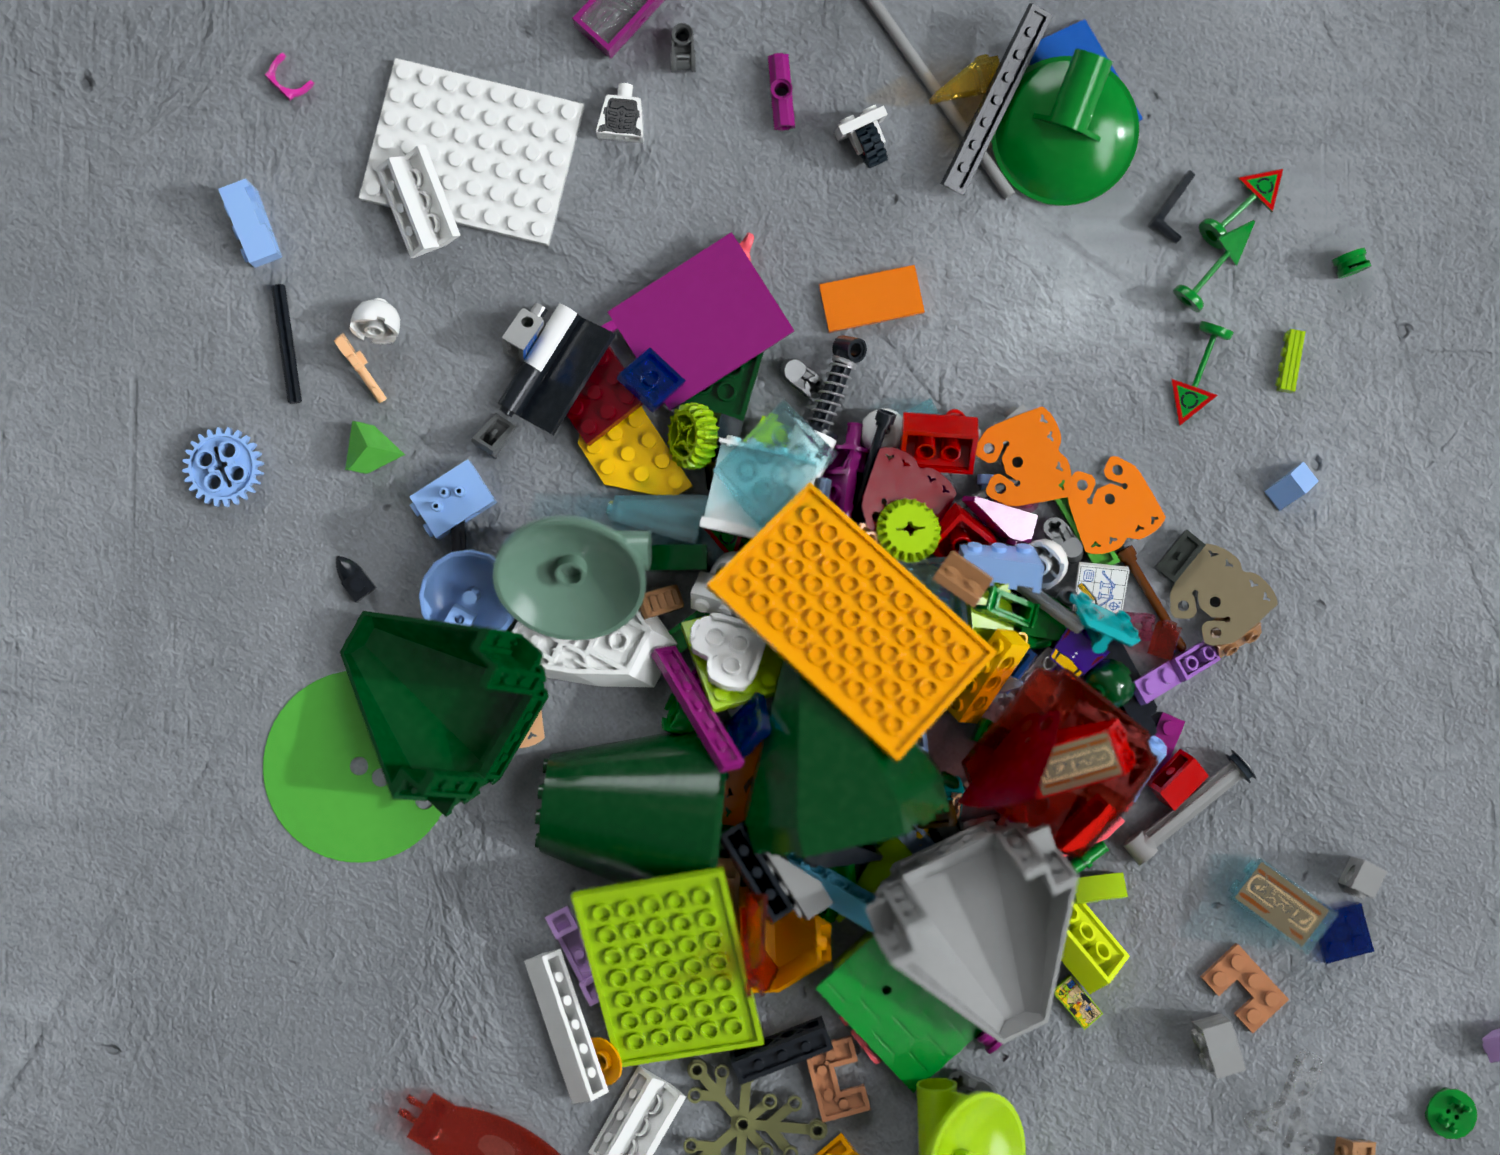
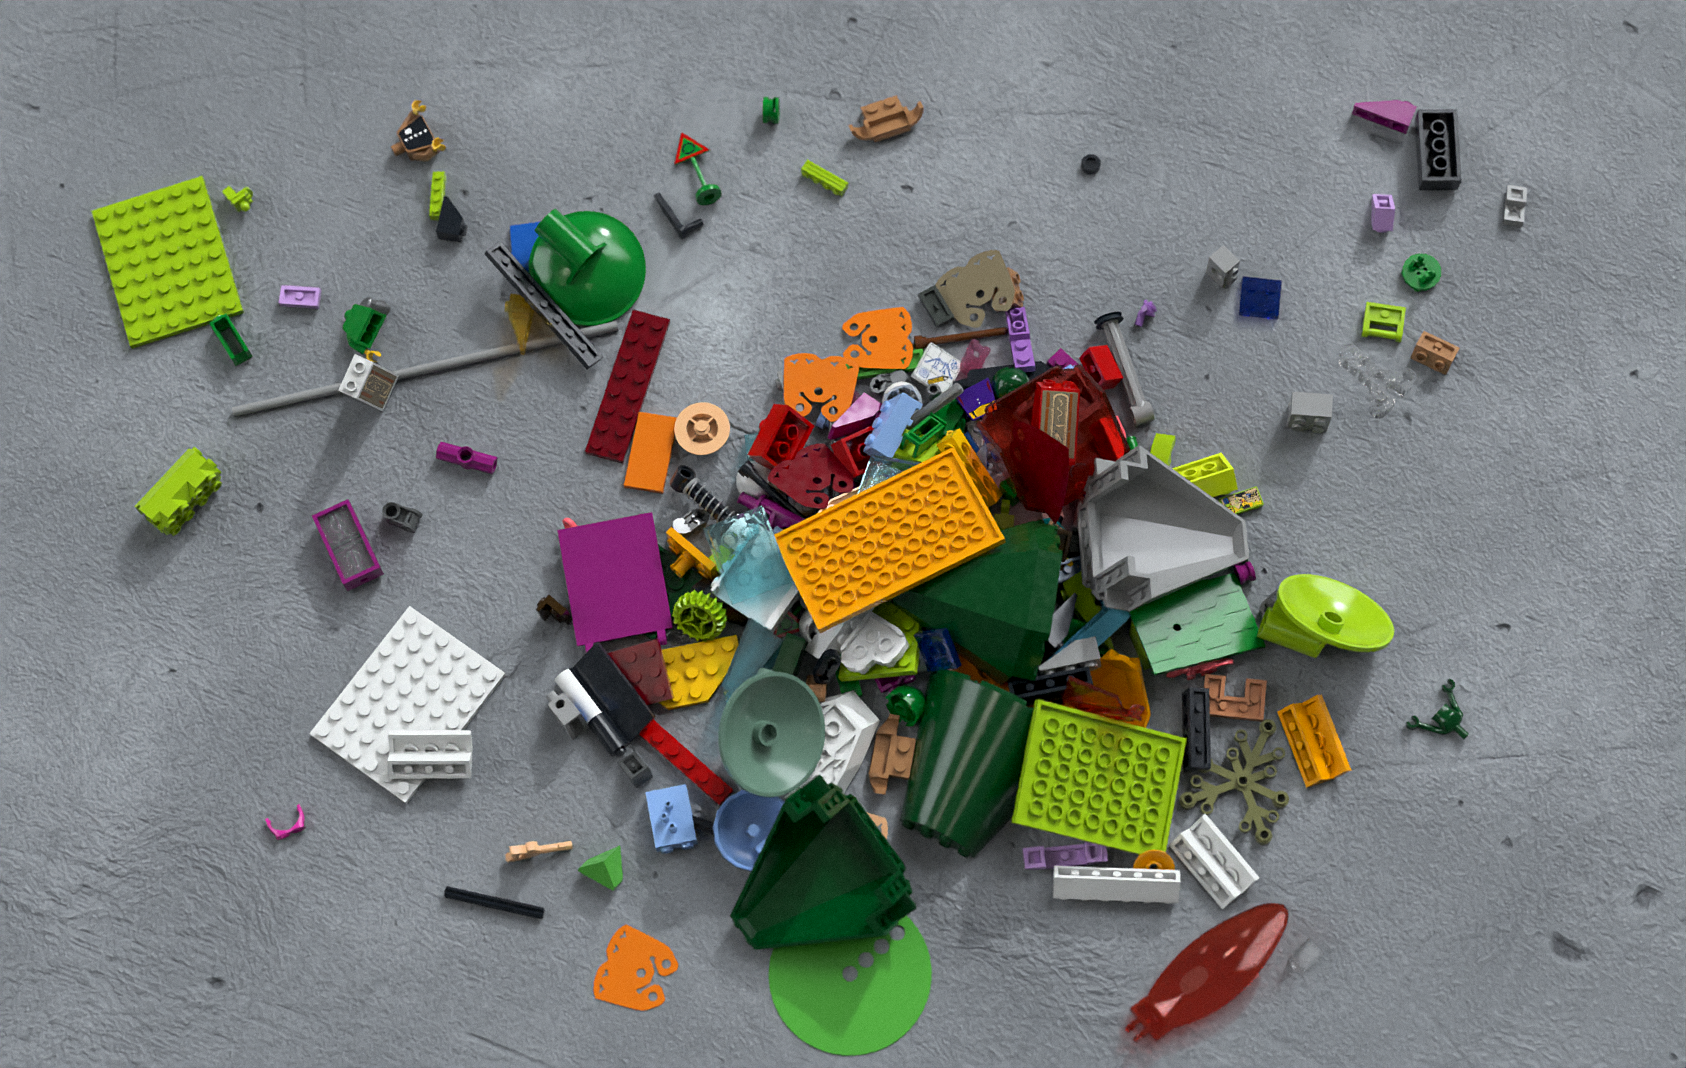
camera: 65 degrees left, 15 degrees down
(202, 475) = (571, 968): light blue gear -> none
(250, 223) = (389, 891): light blue wedge -> none
(273, 513) = (622, 969): none -> orange piece
(354, 578) = (700, 921): black plate -> none
(376, 320) = (508, 823): white cylinder -> none
(526, 484) = (686, 762): none -> red plate
(617, 715) = (890, 756): none -> medium nougat plate
(621, 117) = (433, 580): torso -> none
(637, 269) = (549, 606): none -> dark brown bracket
(651, 379) = (644, 628): clear blue plate -> none
(686, 605) = (823, 665): none -> black beam
(697, 709) = (908, 683): magenta plate -> none
(757, 394) = (689, 557): none -> light orange plate
(865, 135) = (527, 407): plate -> none
(899, 543) = (824, 477): lime gear -> none
(919, 346) = (702, 428): none -> light nougat wheel
(942, 238) = (627, 386): none -> dark red plate
(944, 736) = (1004, 520): none -> lime plate
(963, 578) = (889, 453): medium nougat bracket -> none
(1103, 621) = (967, 365): teal shield -> none
(1164, 639) = (993, 338): clear red brick -> none
(1190, 398) = (821, 257): green piece -> none
(1234, 244) = (722, 183): green piece -> none
(1239, 966) = (1258, 378): nougat plate -> none
(1275, 807) = (1147, 309): none -> medium lavender plate
(1282, 905) = (1222, 328): slope -> none
(1291, 486) = (917, 211): light blue slope -> none
(1377, 1090) = (1383, 315): none -> lime plate
(1394, 404) = (886, 119): none -> medium nougat plate
(1434, 669) = (1090, 164): none -> black tile

